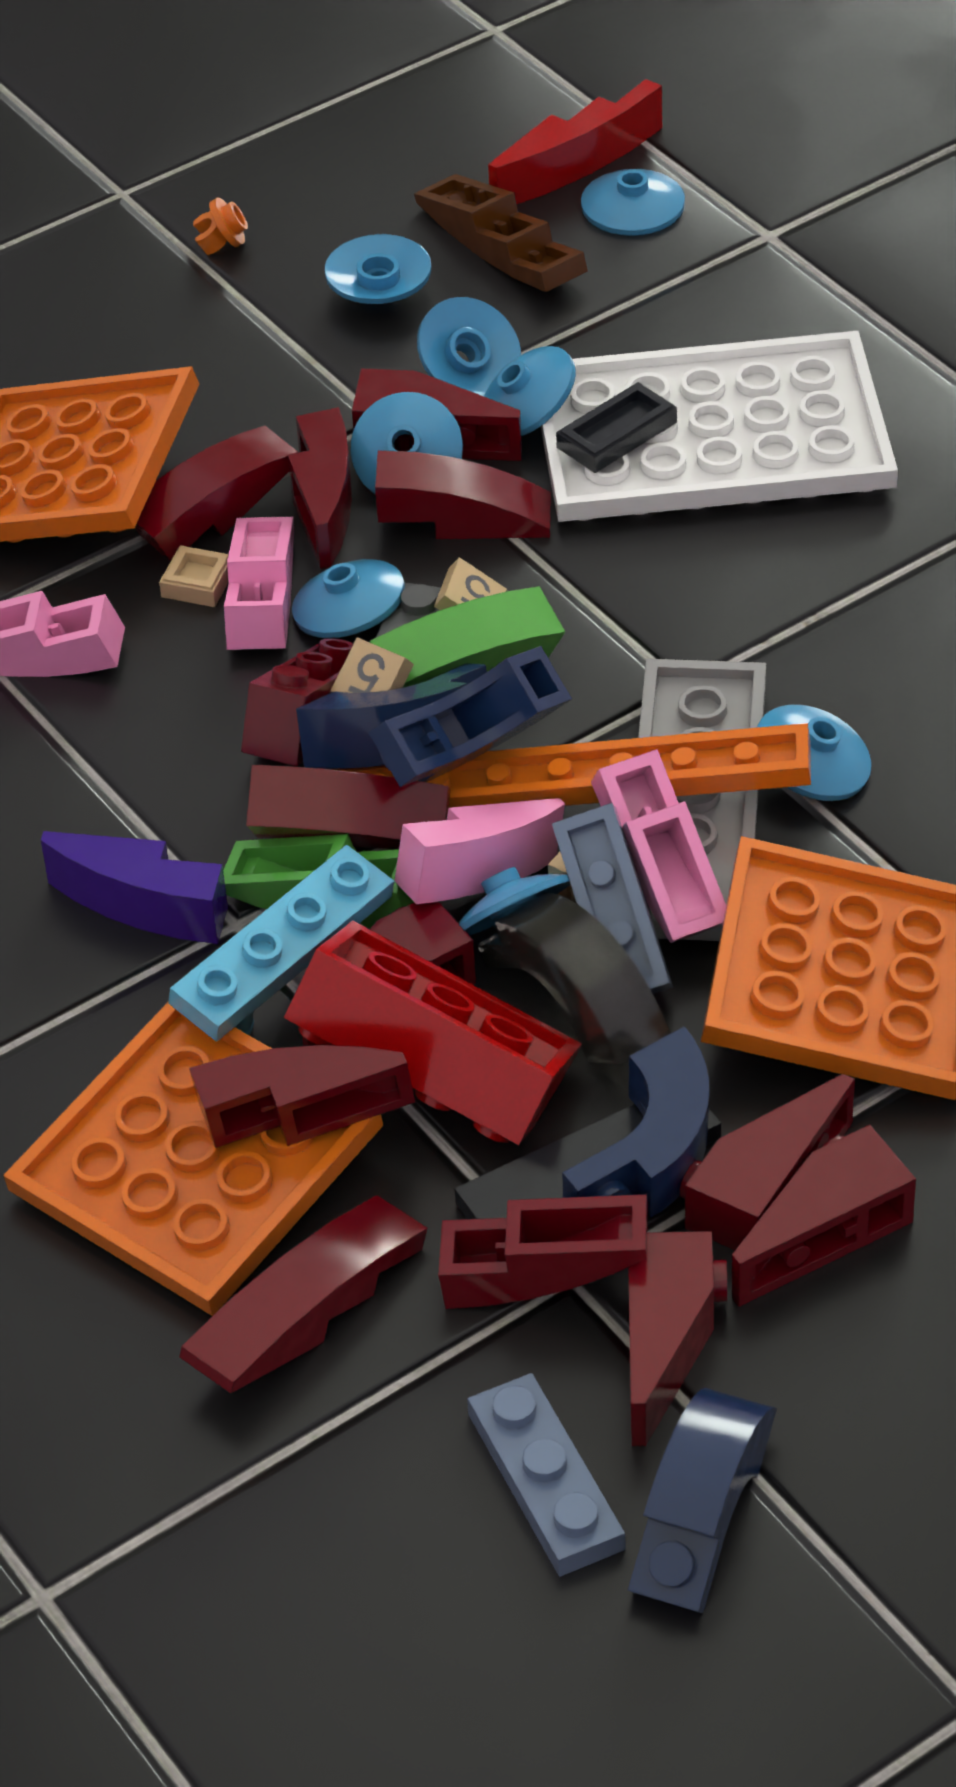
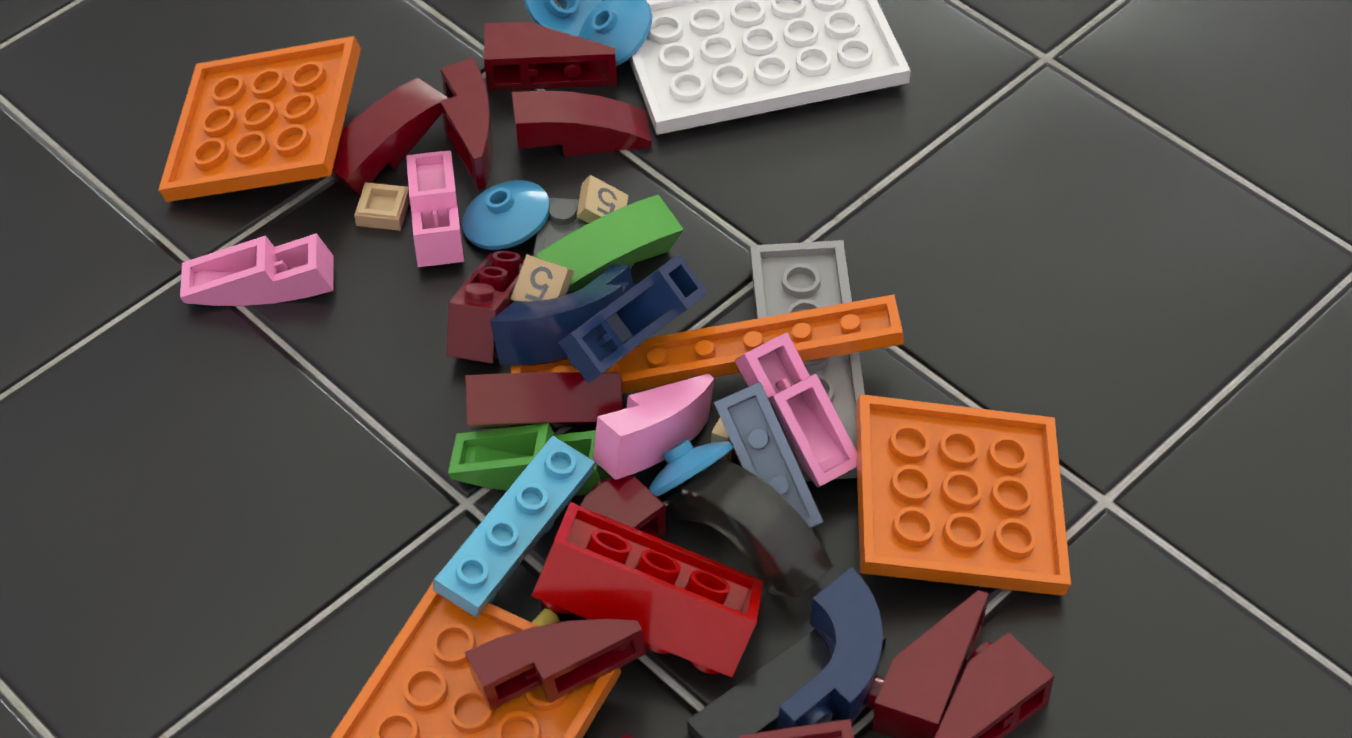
camera: 10 degrees left, 5 degrees up
(138, 884) = (383, 479): dark purple slope -> none
(398, 414) = (521, 61): dark azure dish -> none
(616, 427) = (690, 54): black tile -> none
(837, 752) = (914, 307): dark azure dish -> none

